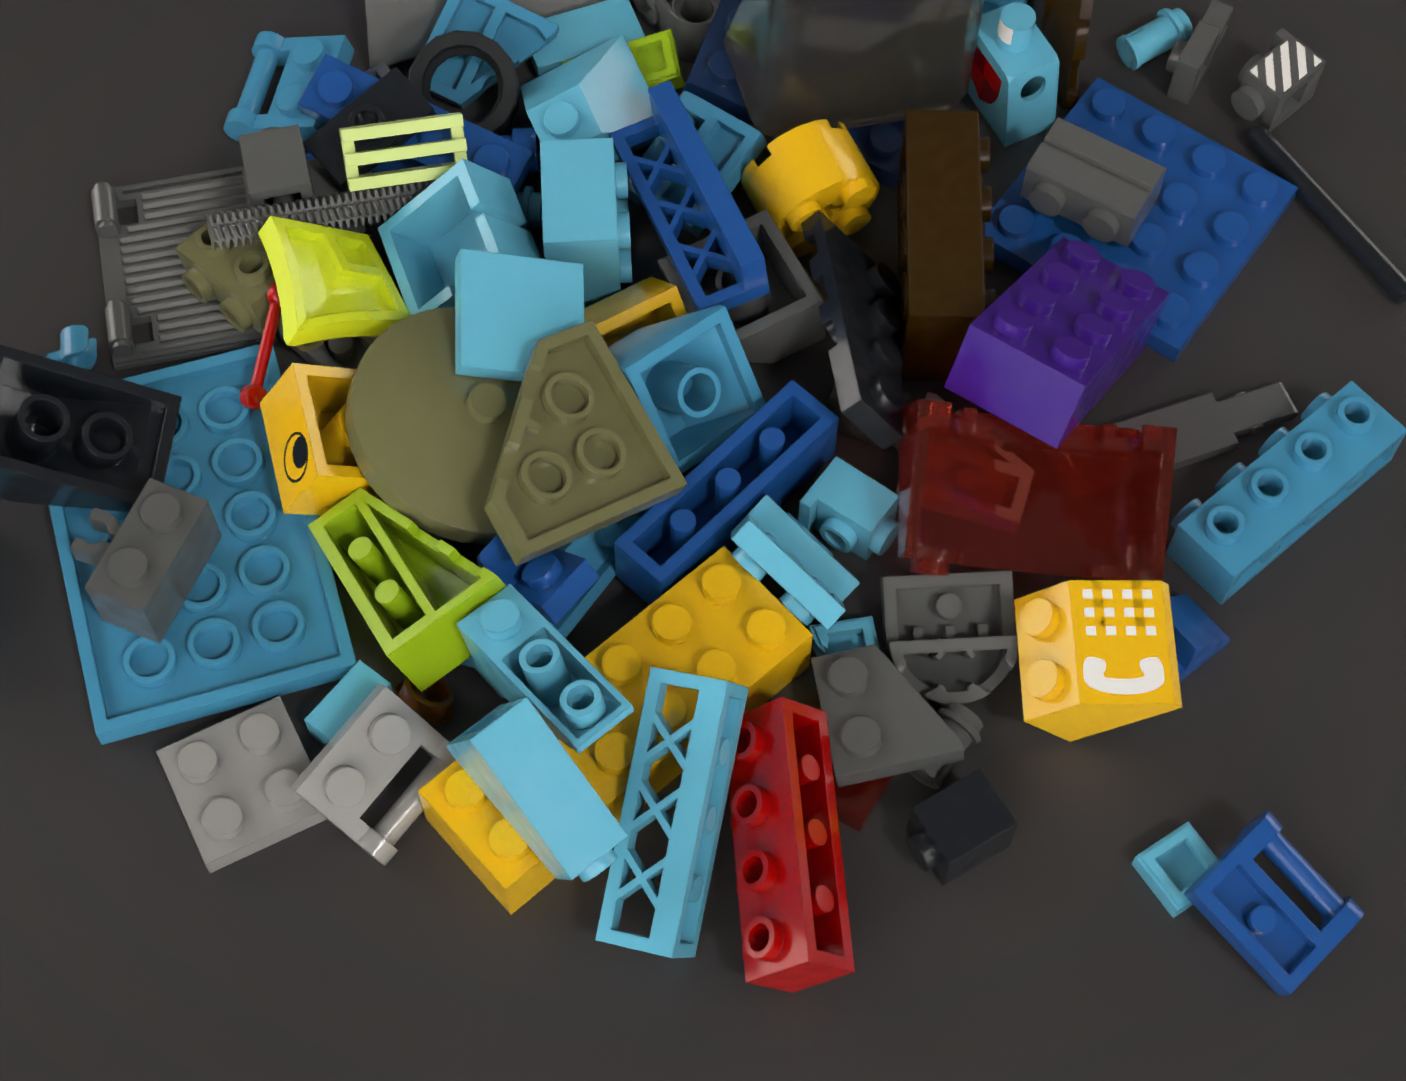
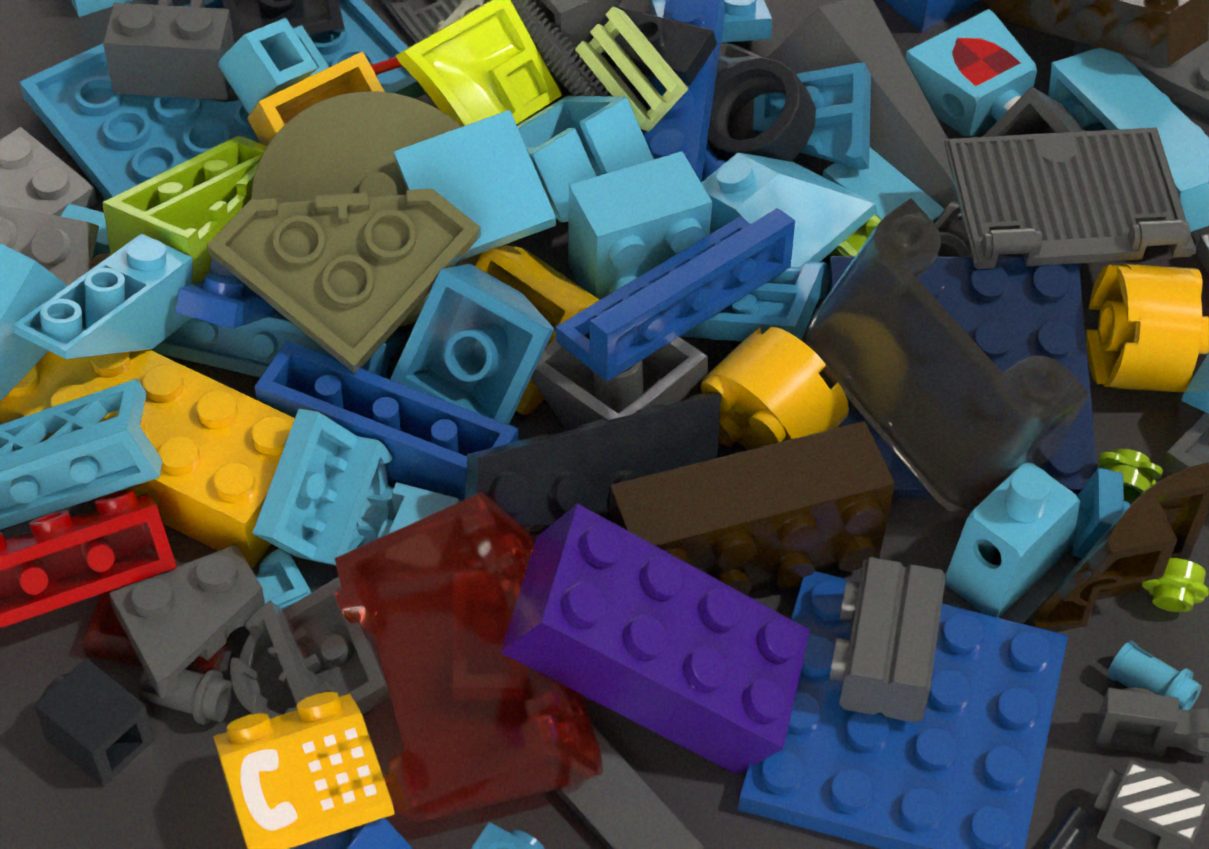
camera: 70 degrees right, 10 degrees down
(246, 462) = (270, 61): none -> medium azure brick

